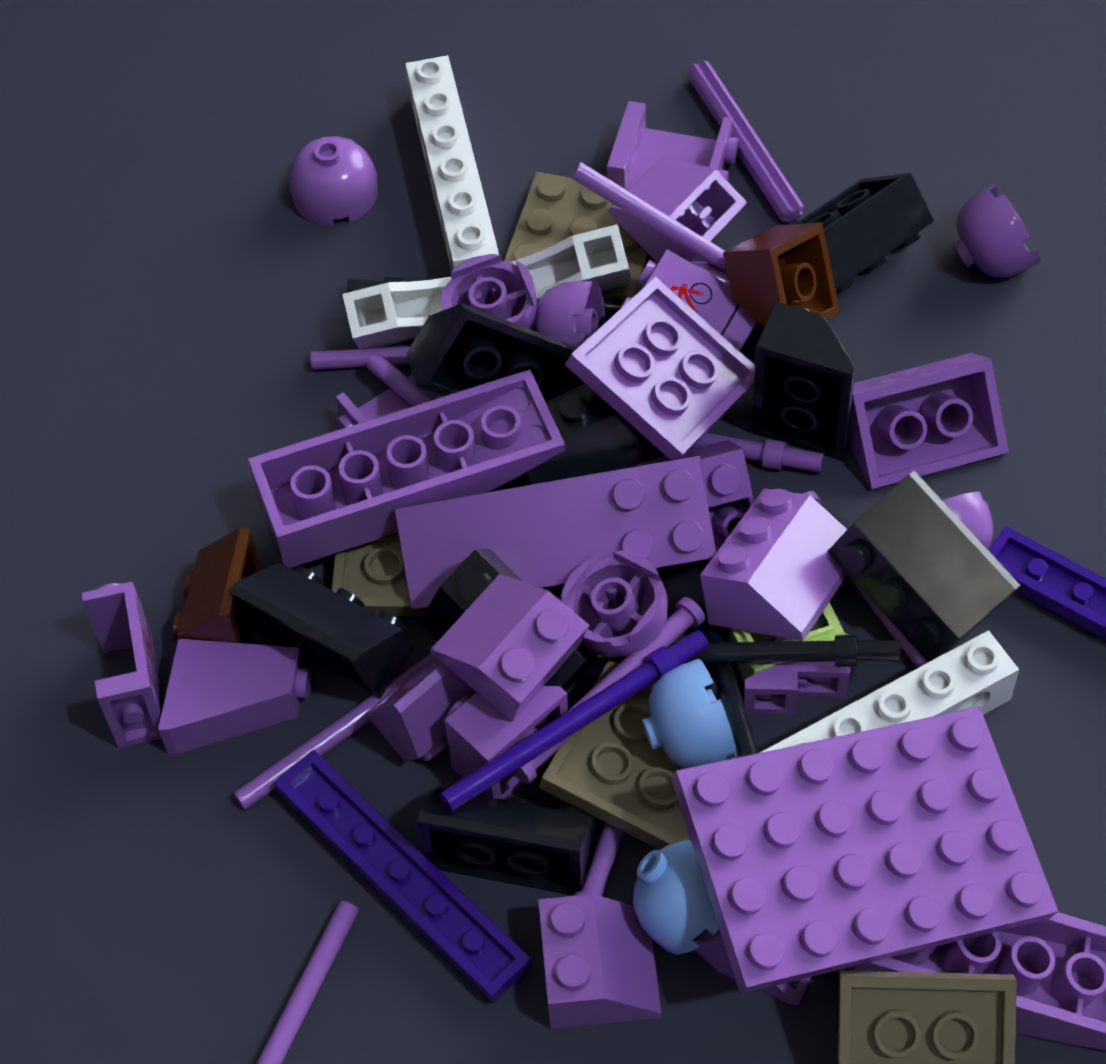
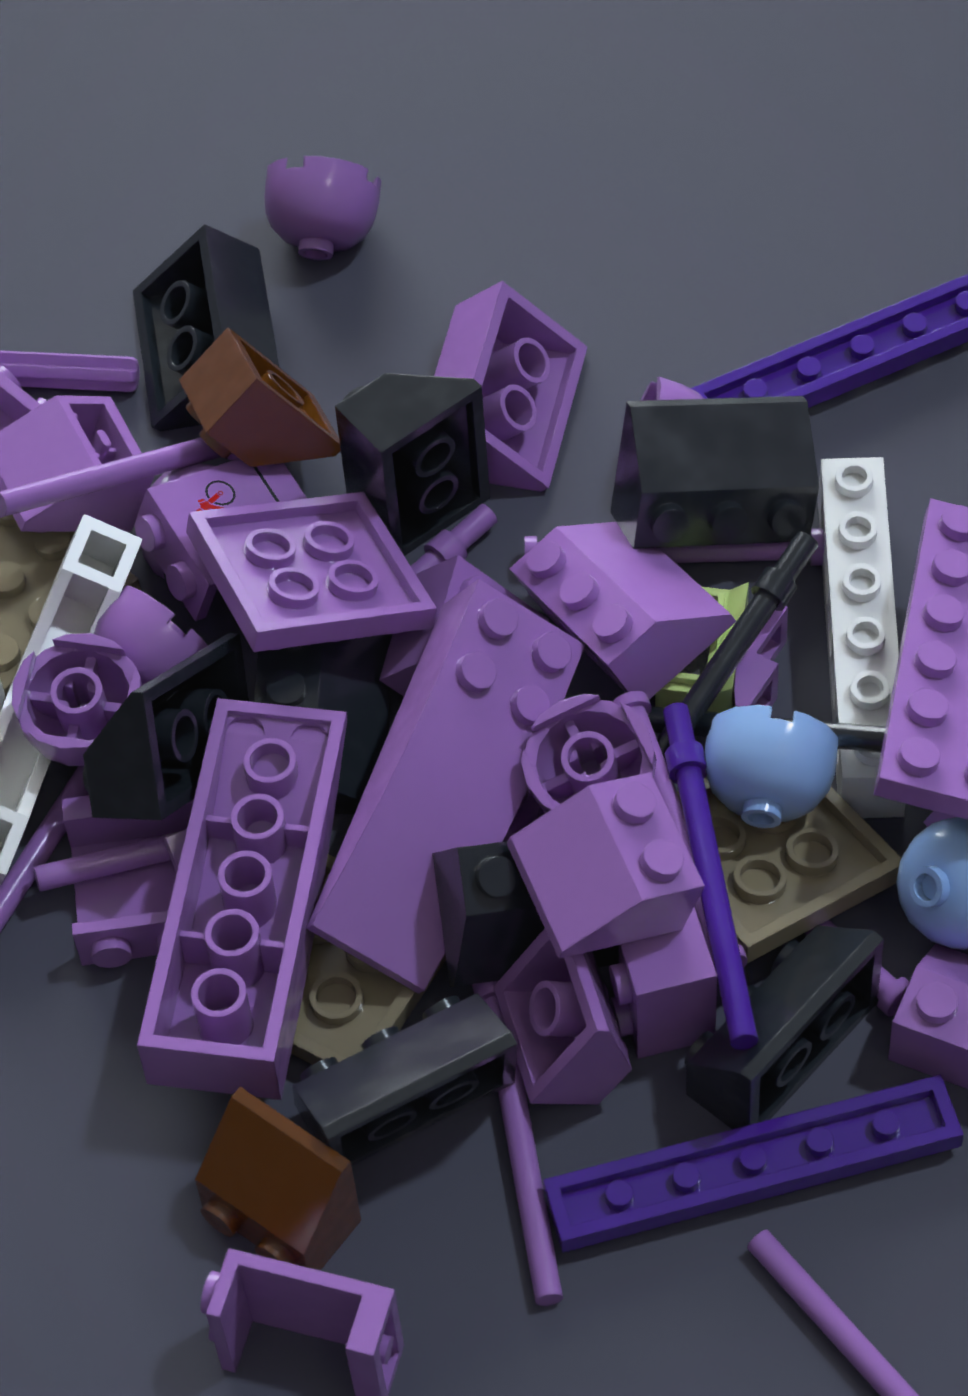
camera: 60 degrees left, 0 degrees up
(229, 691) = (403, 1231): medium lavender slope -> none

